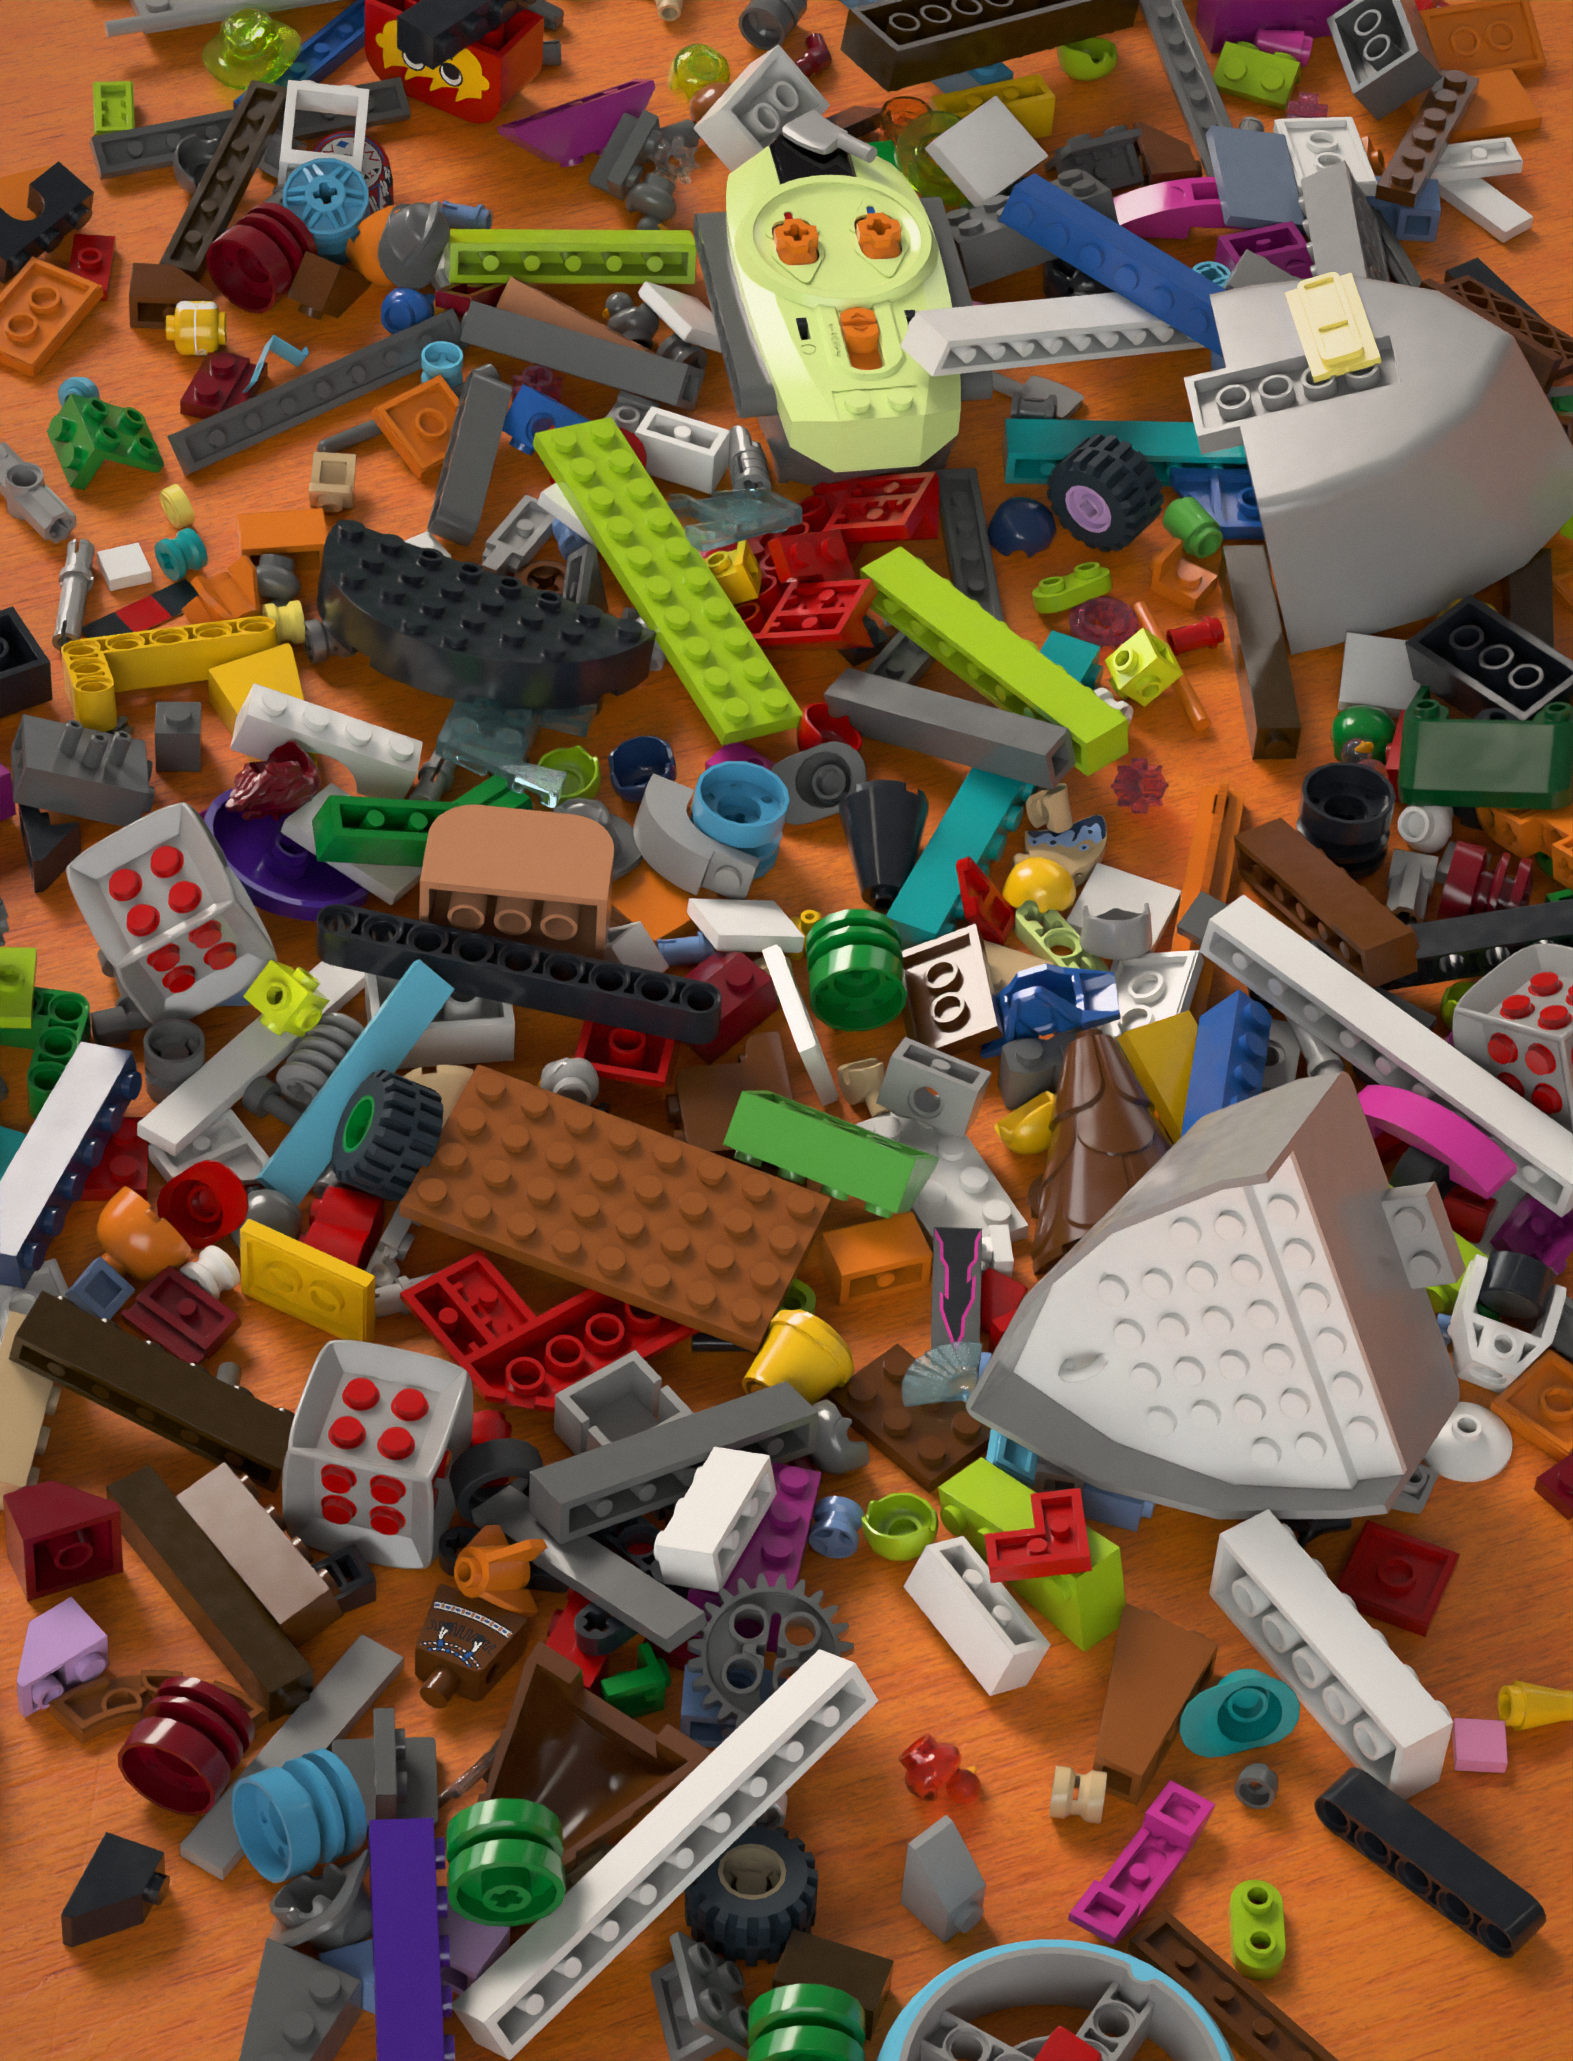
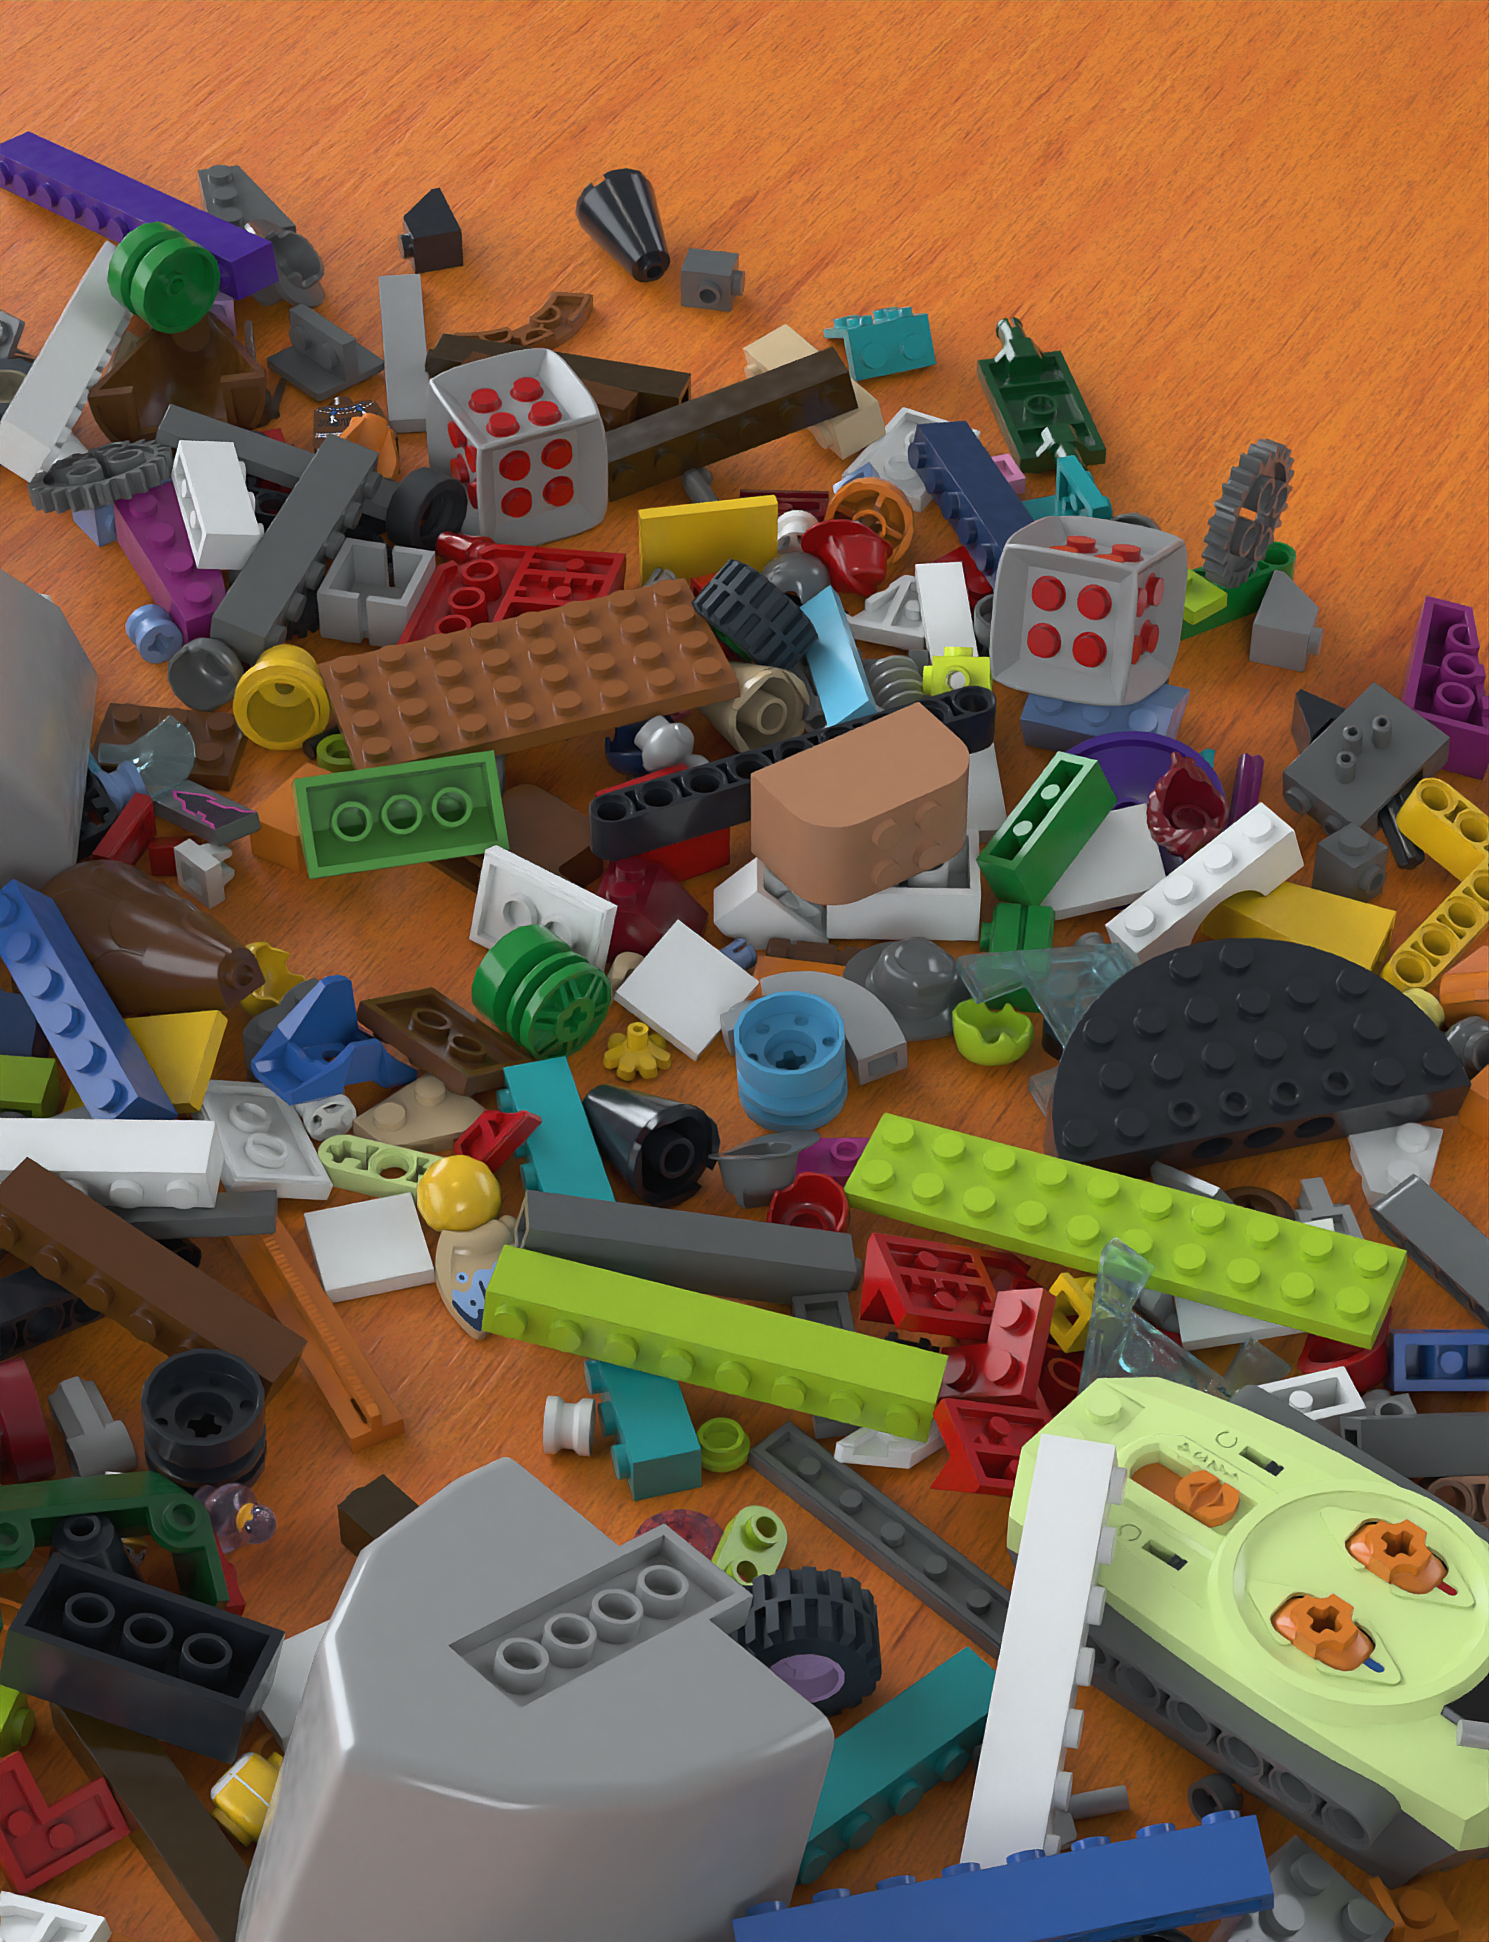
camera: 145 degrees right, 5 degrees down
(59, 1654) = (614, 310): lavender slope -> none
(61, 1537) = (687, 329): dark red slope -> none
(186, 1745) = (462, 282): dark red wheel -> none
(298, 1815) = (347, 278): dark azure wheel -> none
(635, 763) = (936, 1081): dark blue hair -> none
(862, 1083) = (447, 948): tan piece -> none
(900, 1526) = (109, 647): lime hair -> none
(956, 1081) = (363, 912): light grey brick -> none
(961, 1187) = (319, 921): white plate -> none
(1022, 526) = (898, 1604): dark blue hair -> none
(1117, 933) = (338, 1173): light grey hair -> none
(1139, 785) = (459, 1361): clear pink gear -> none
(1142, 668) = (580, 1479): neon yellow brick -> none
(1332, 326) = (608, 1699): light yellow piece -> none
(1364, 723) = (283, 1591): green hair -> none

